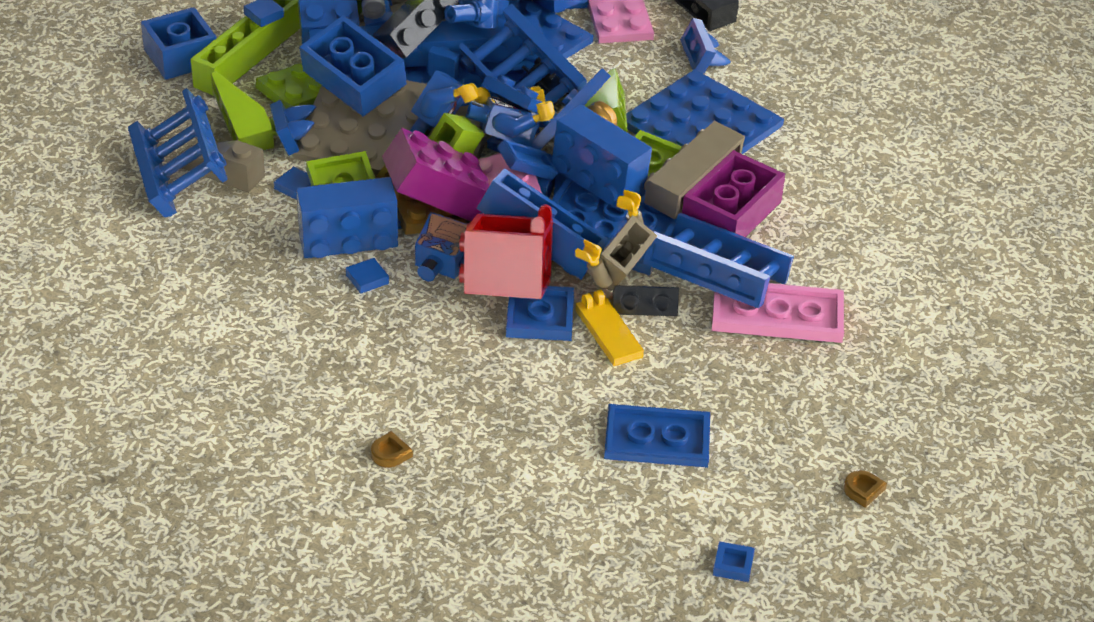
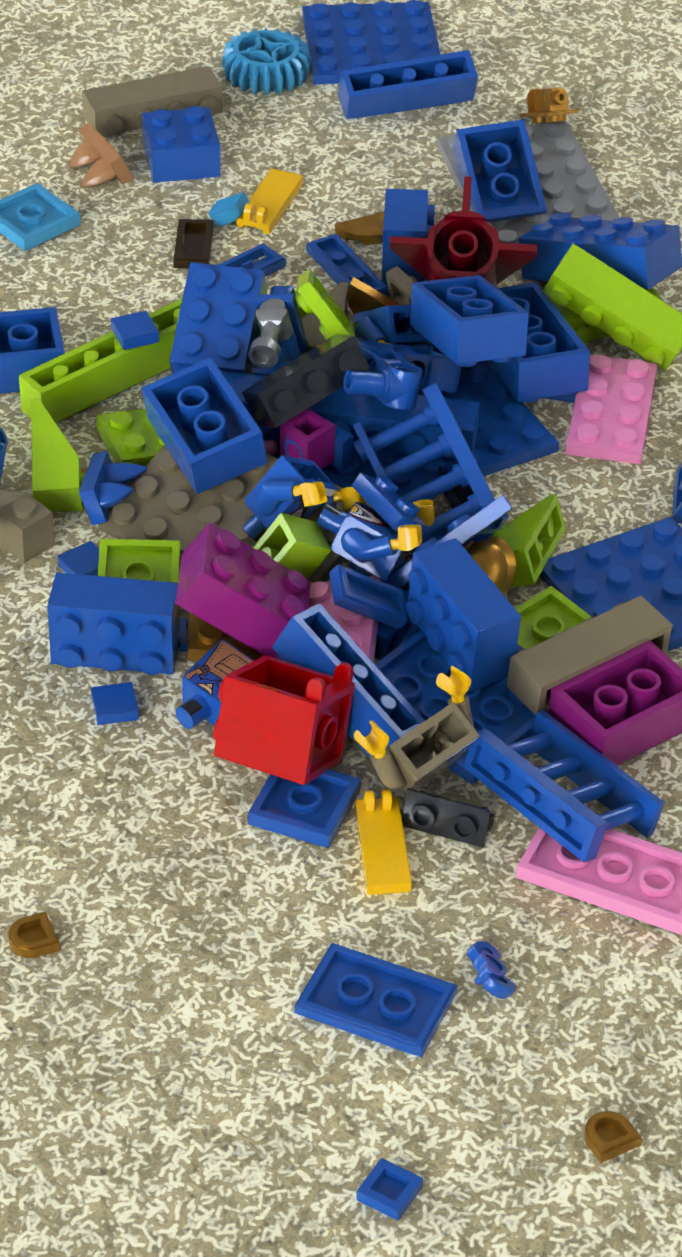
camera: 20 degrees right, 0 degrees up
(425, 61) = (308, 438): none -> magenta brick
(728, 396) = (490, 970): none -> blue piece

